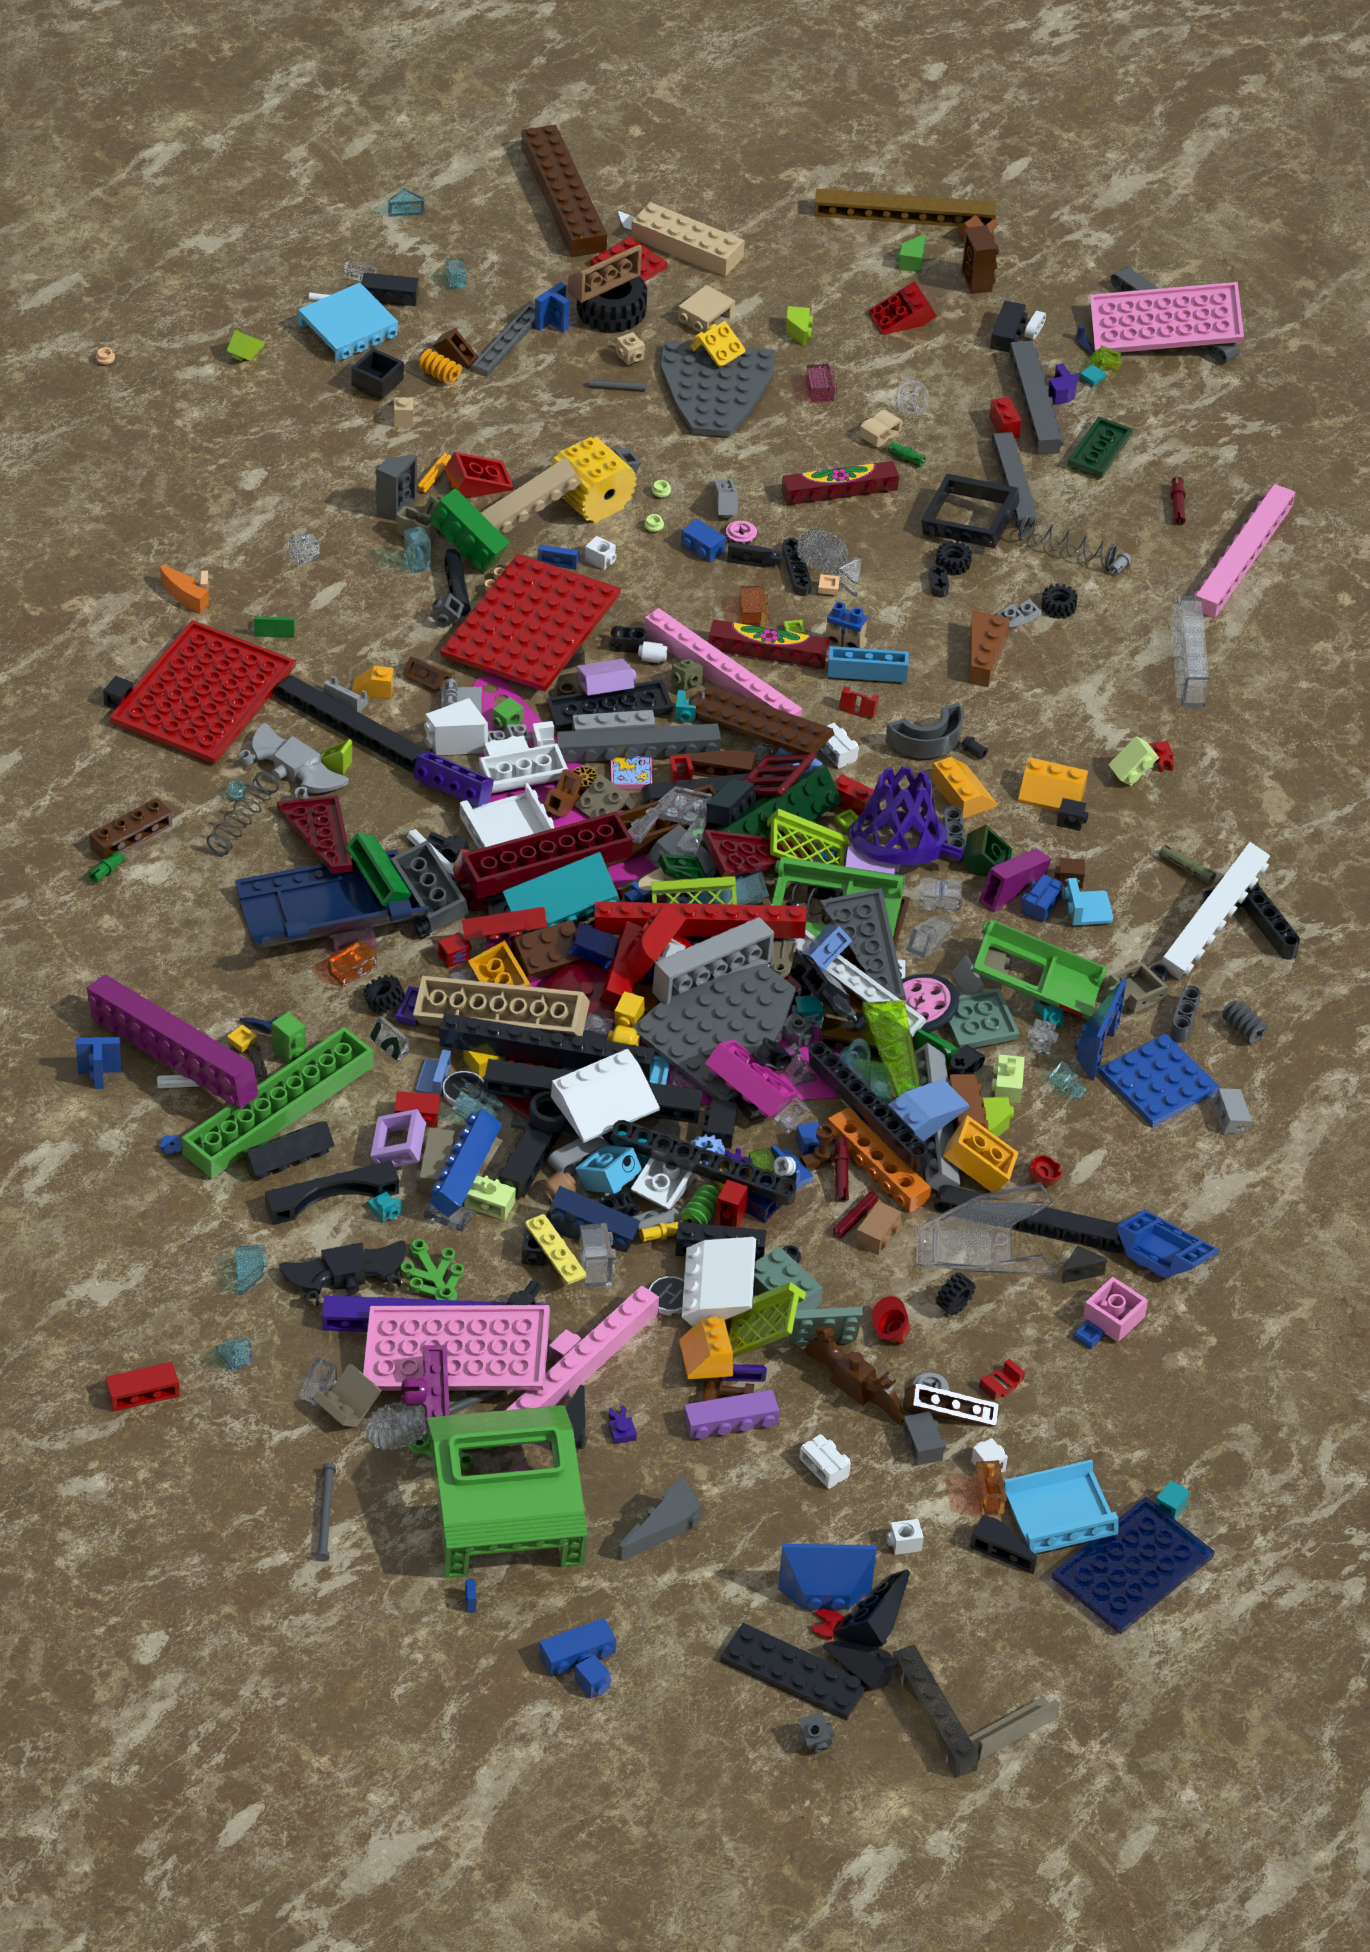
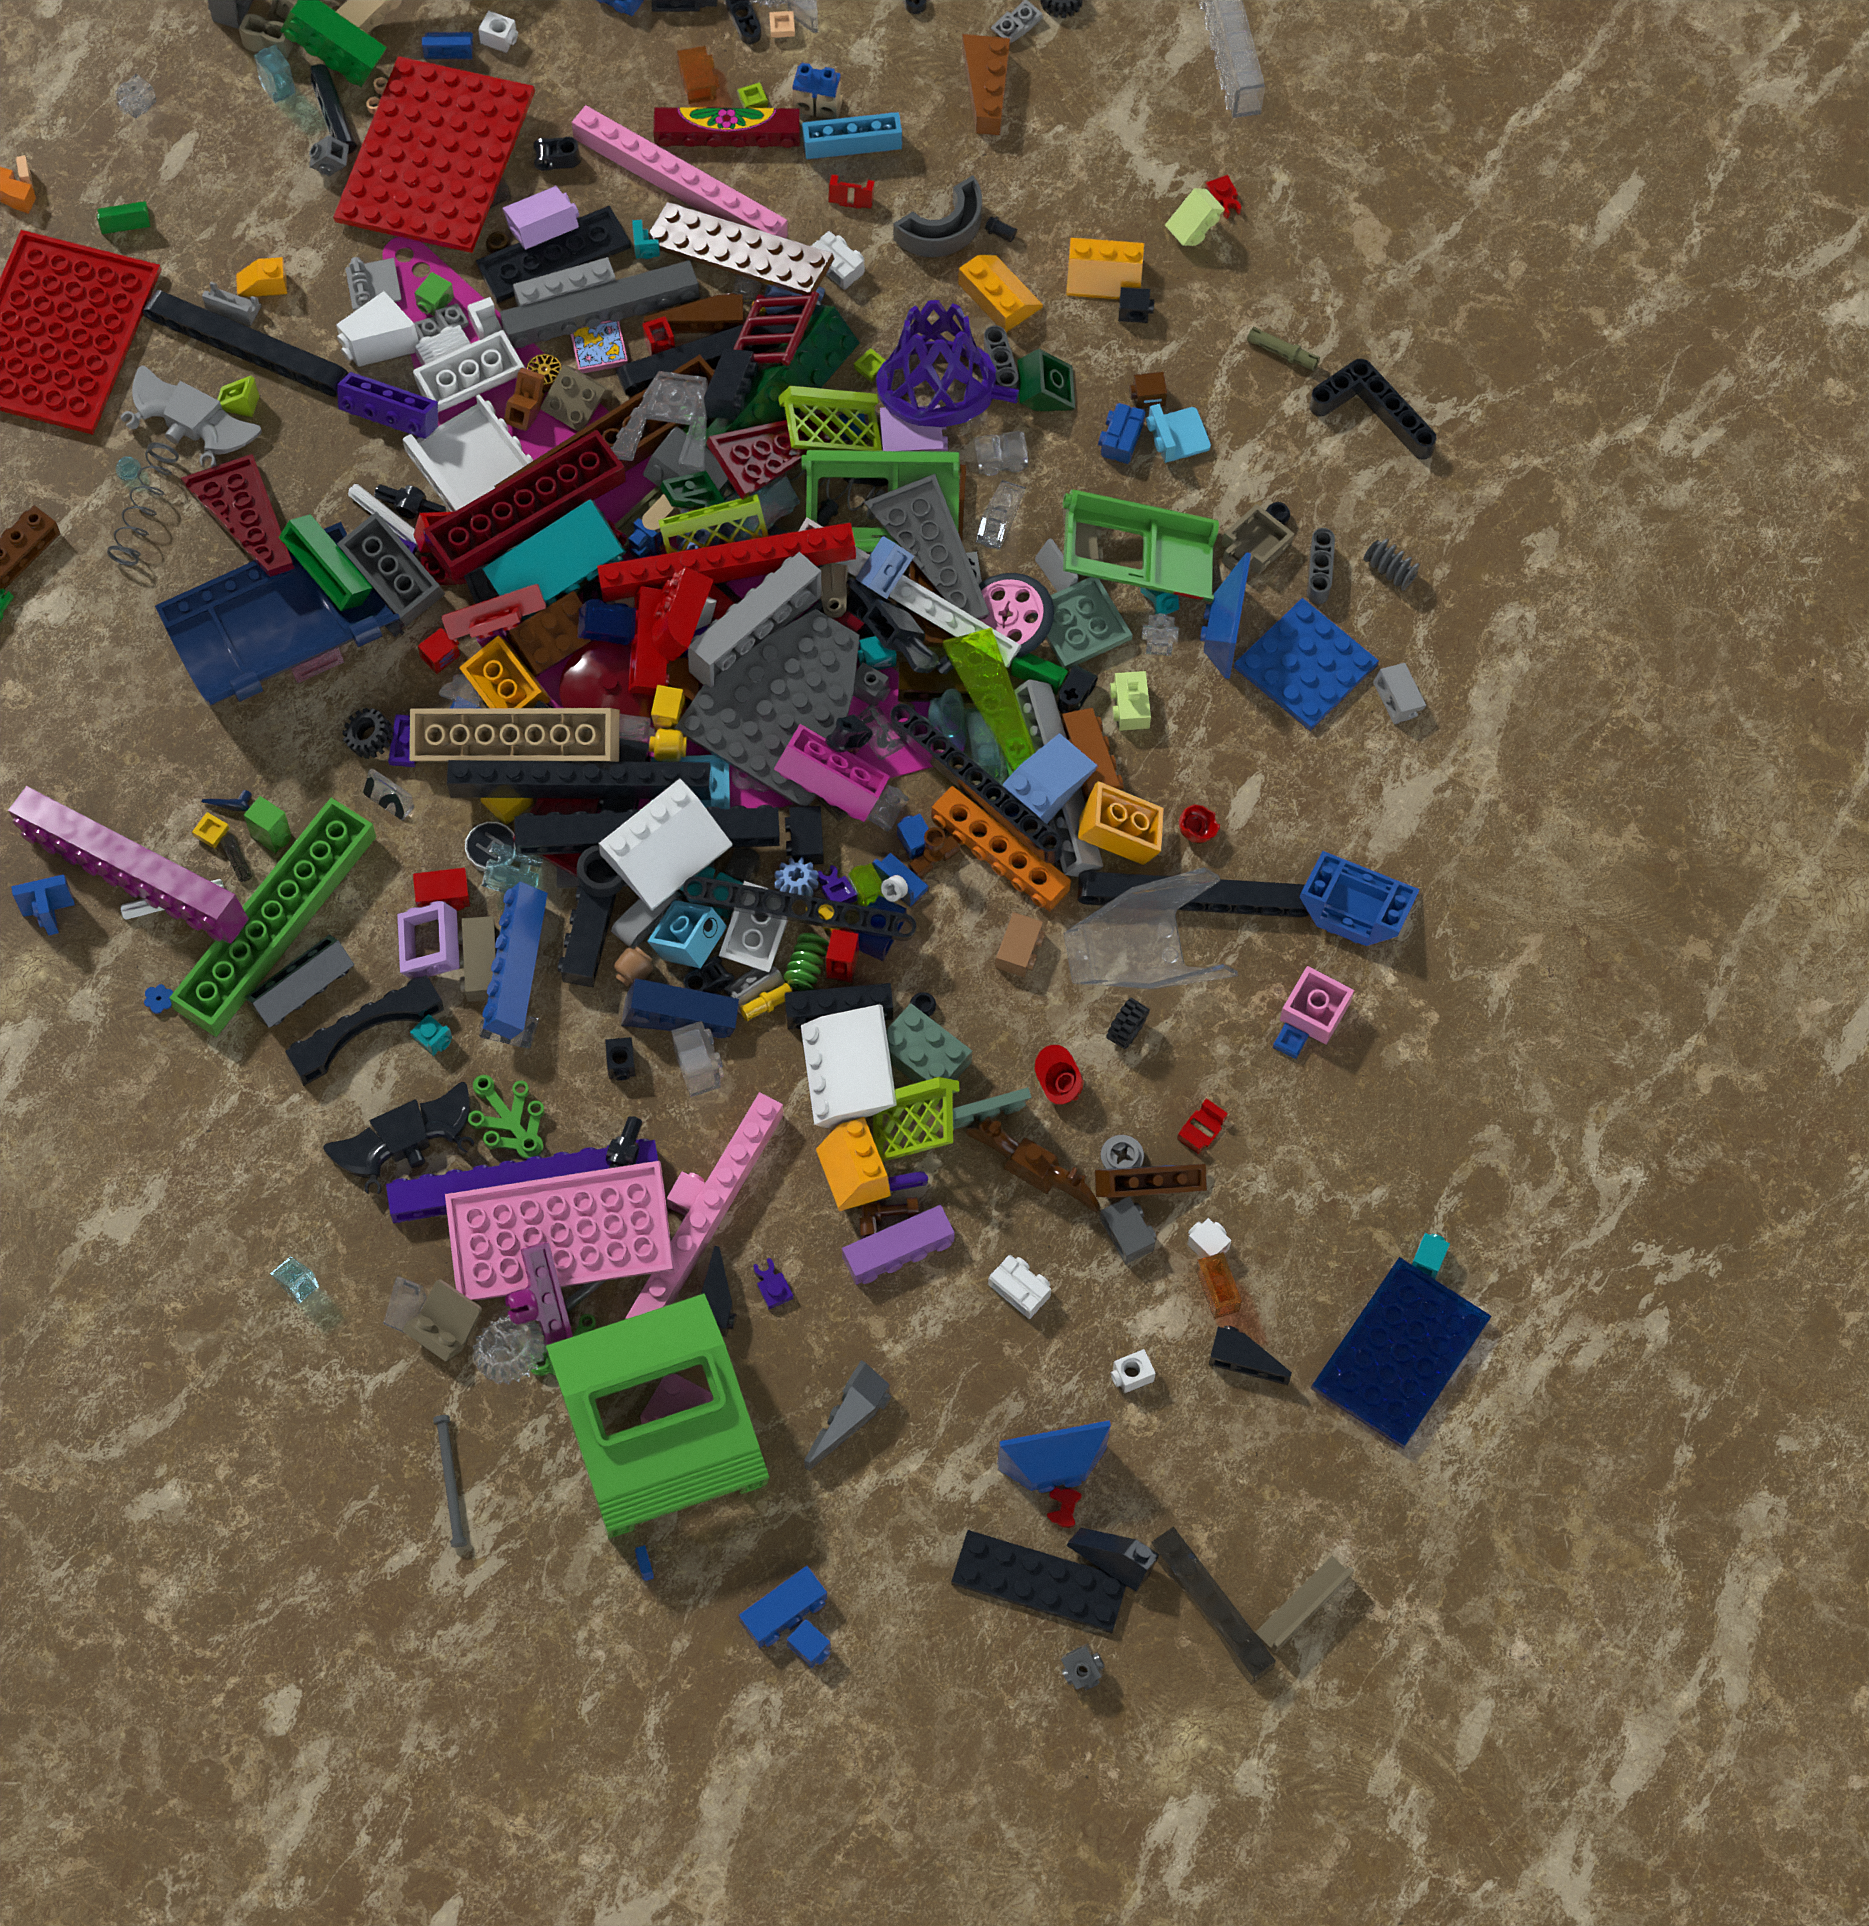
camera: 10 degrees left, 20 degrees up
(142, 1386) = (196, 1353): red brick -> none
(250, 1266) = (288, 1156): clear light blue slope -> none
(352, 963) = (320, 694): clear orange brick -> none
(425, 673) = (322, 250): reddish brown panel -> none
(434, 1074) = (451, 834): medium blue panel -> none
(490, 1197) = (555, 997): yellowish green brick -> none
(555, 1249) = (647, 1061): light yellow bracket -> none
(653, 652) = (590, 166): white brick -> none
(670, 1294) = (791, 1088): black tile -> none
(686, 674) = (637, 192): olive brick -> none
(841, 1163) = (958, 861): dark red pin -> none
(853, 794) = (873, 331): red brick -> none
(855, 1214) = (988, 929): dark red axle -> none
(876, 1614) = (1118, 1492): black wedge -> none
(998, 1114) = (1129, 756): lime slope -> none
(1013, 878) = (1083, 413): magenta slope -> none
(1060, 1507) = (1304, 1295): medium azure panel -> none
(1065, 1077) = (1196, 686): clear light blue plate -> none
(1083, 1265) = (1267, 947): clear smoke slope -> none
(1214, 911) = (1330, 417): white brick -> none

